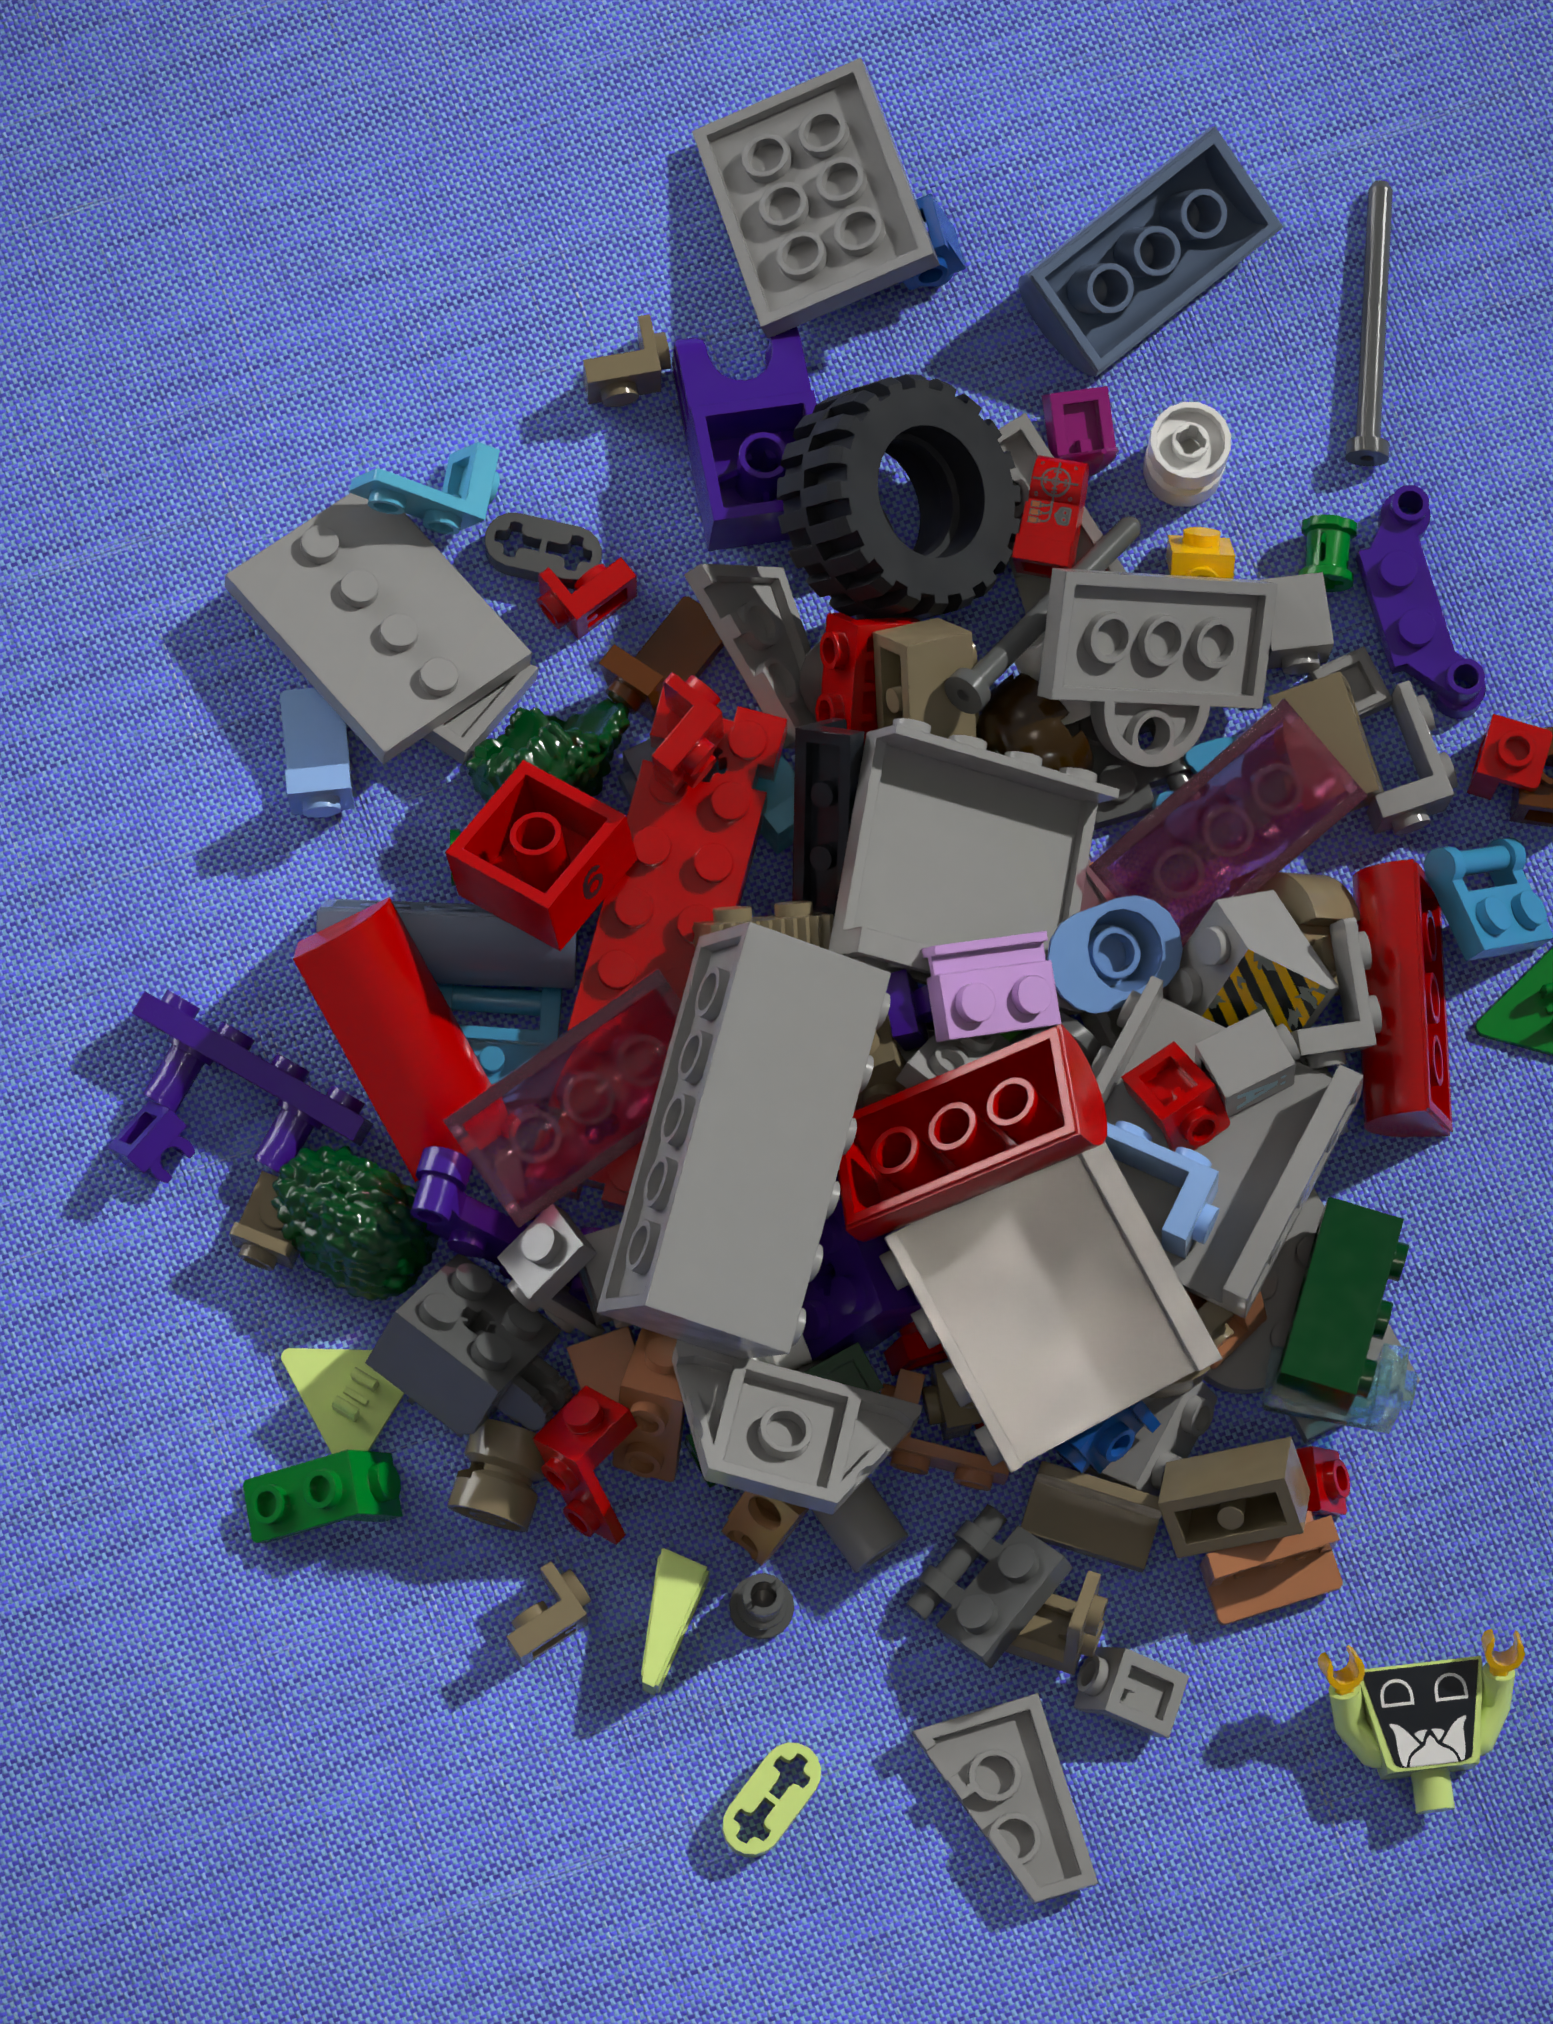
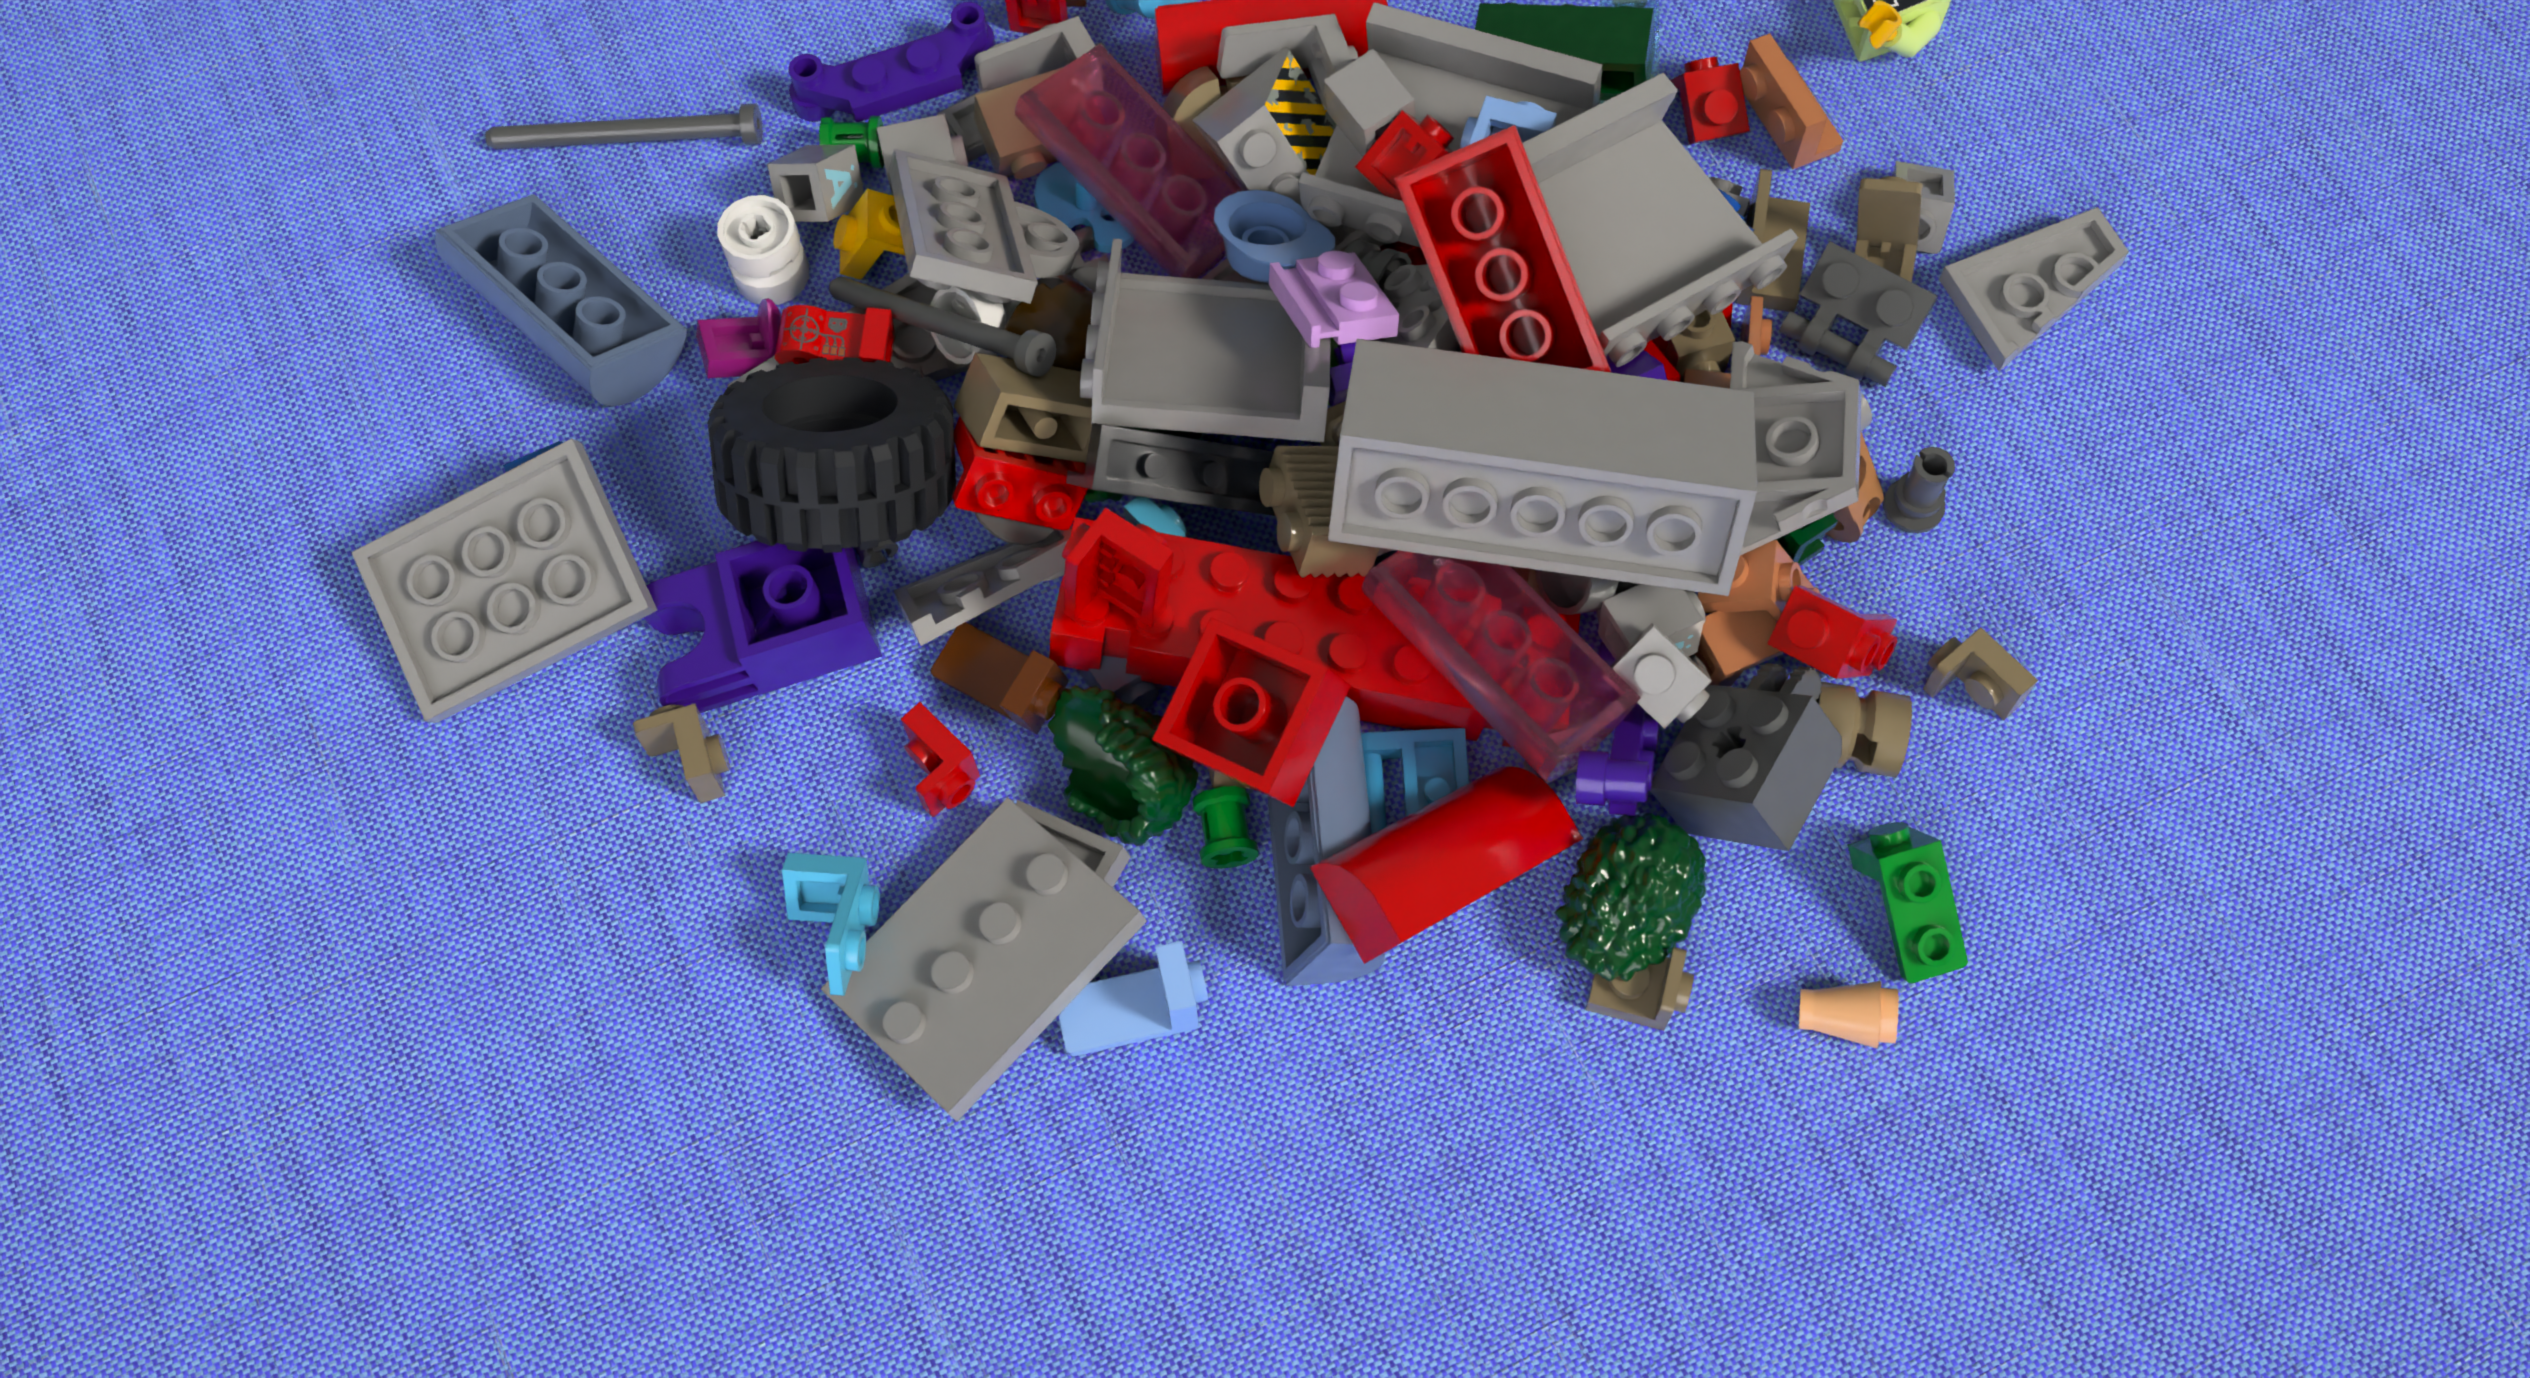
camera: 90 degrees left, 10 degrees down
(148, 1137) = (1576, 1120): dark purple tile -> none
(198, 1045) = (1467, 1049): dark purple plate -> none
(216, 1416) = (1852, 1012): none -> light nougat cone
(342, 1395) = (1796, 897): yellowish green piece -> none
(545, 536) = (875, 811): dark grey beam -> none
(675, 1598) = (1954, 570): yellowish green slope -> none
(784, 1809) = (2091, 475): yellowish green beam -> none
(1234, 1497) = (1751, 109): dark tan brick -> none
(1260, 509) = (817, 181): none -> light grey brick

